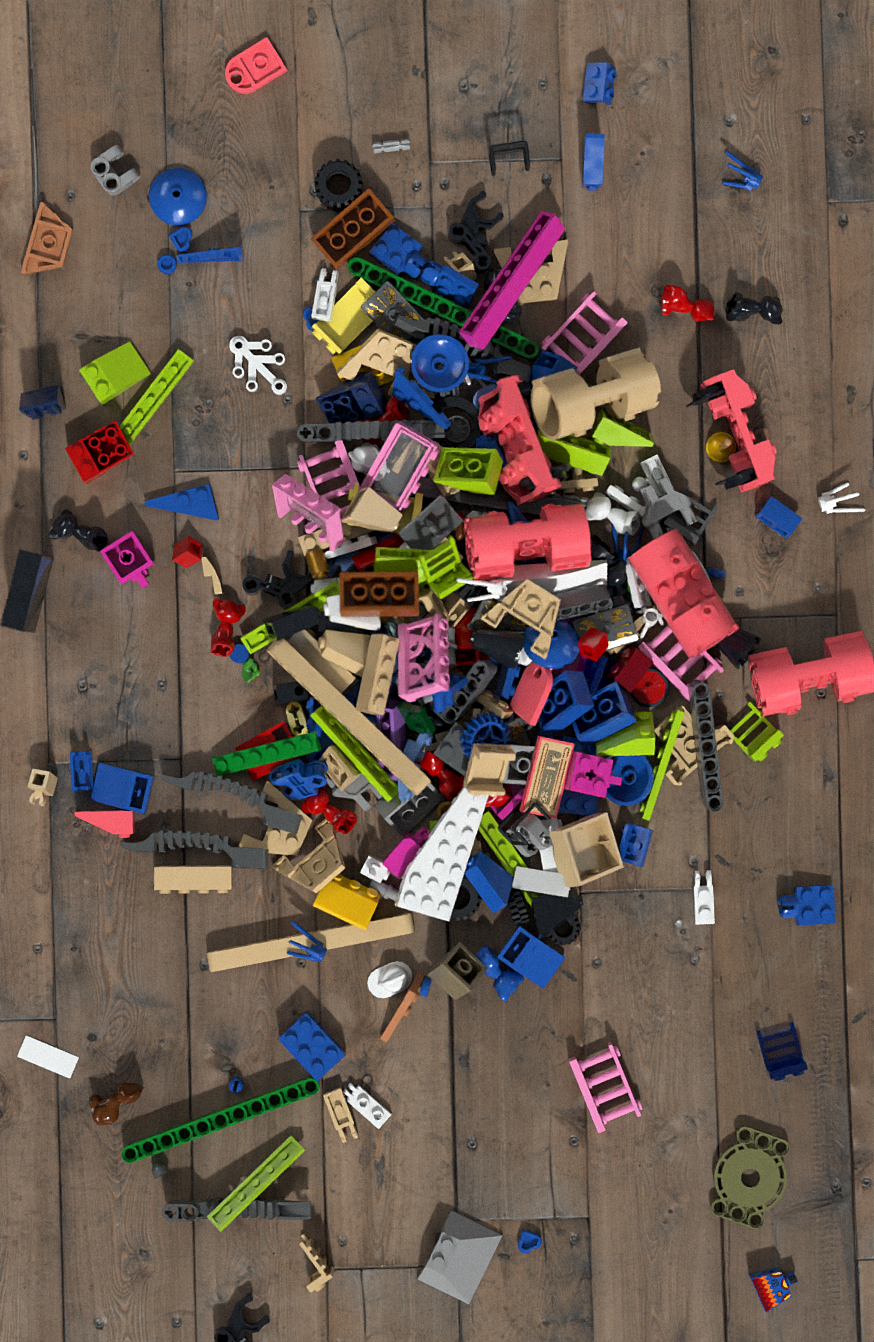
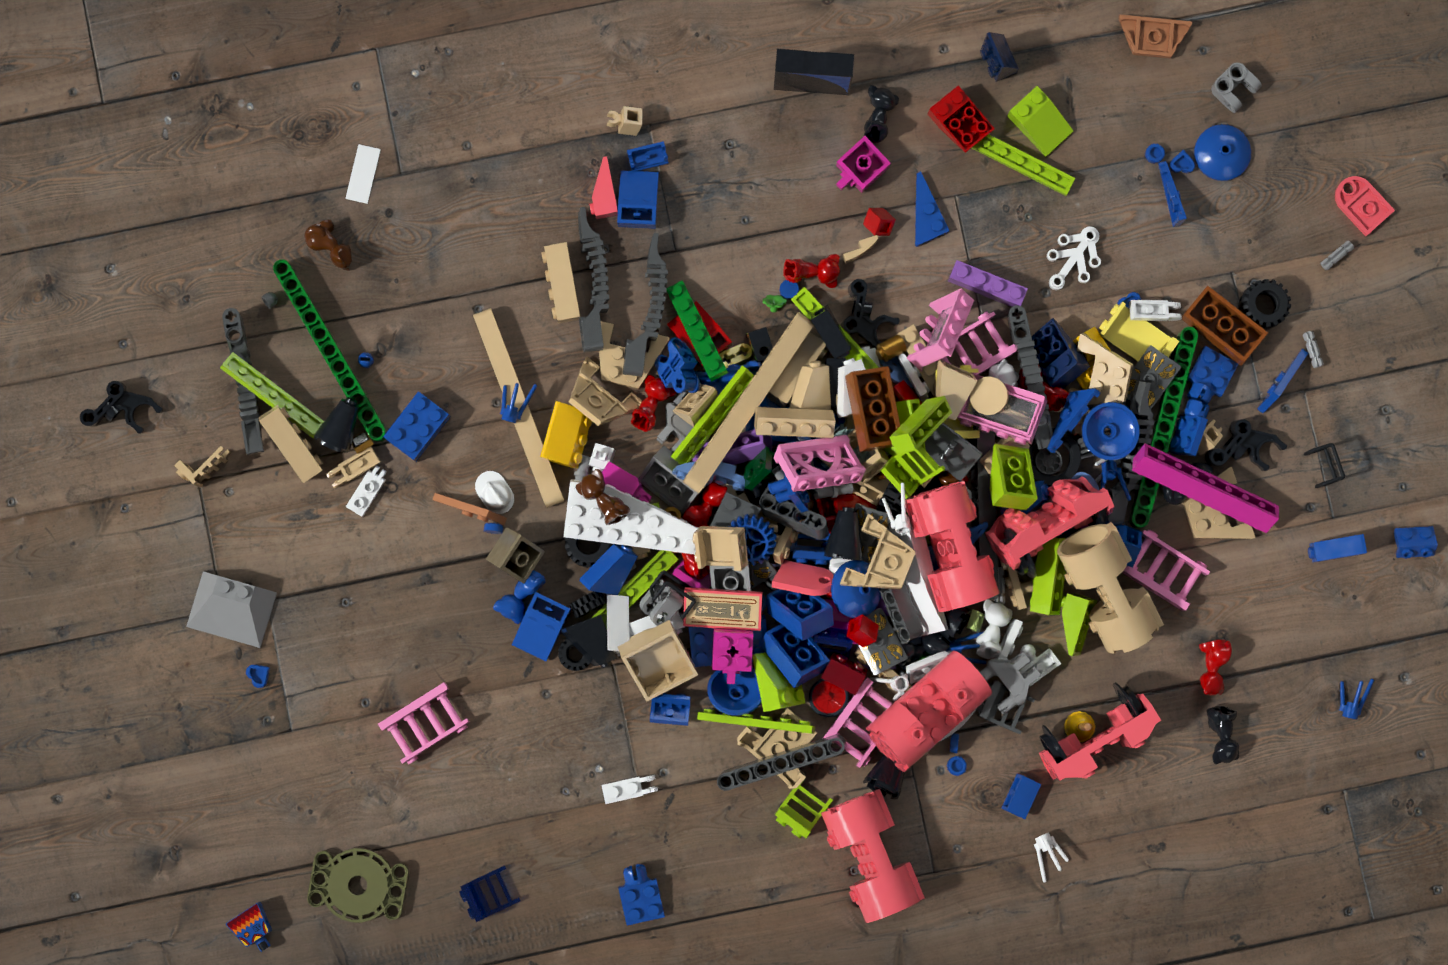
camera: 85 degrees right, 5 degrees down
(270, 456) = (987, 284): none -> medium lavender brick
(299, 1123) = (339, 426): none -> black cone
(301, 103) = (1337, 255): none -> light grey axle
(308, 1173) = (290, 443): none -> tan brick
(317, 1103) = (361, 442): none -> tile
(385, 477) = (989, 396): none -> tan tile
(404, 551) = (921, 424): none -> lime brick
(418, 182) = (1282, 381): none -> blue wing
(430, 869) = (593, 488): none -> reddish brown animal
(600, 529) = (976, 621): none -> yellowish green tile
(737, 574) = (956, 765): none -> blue tile

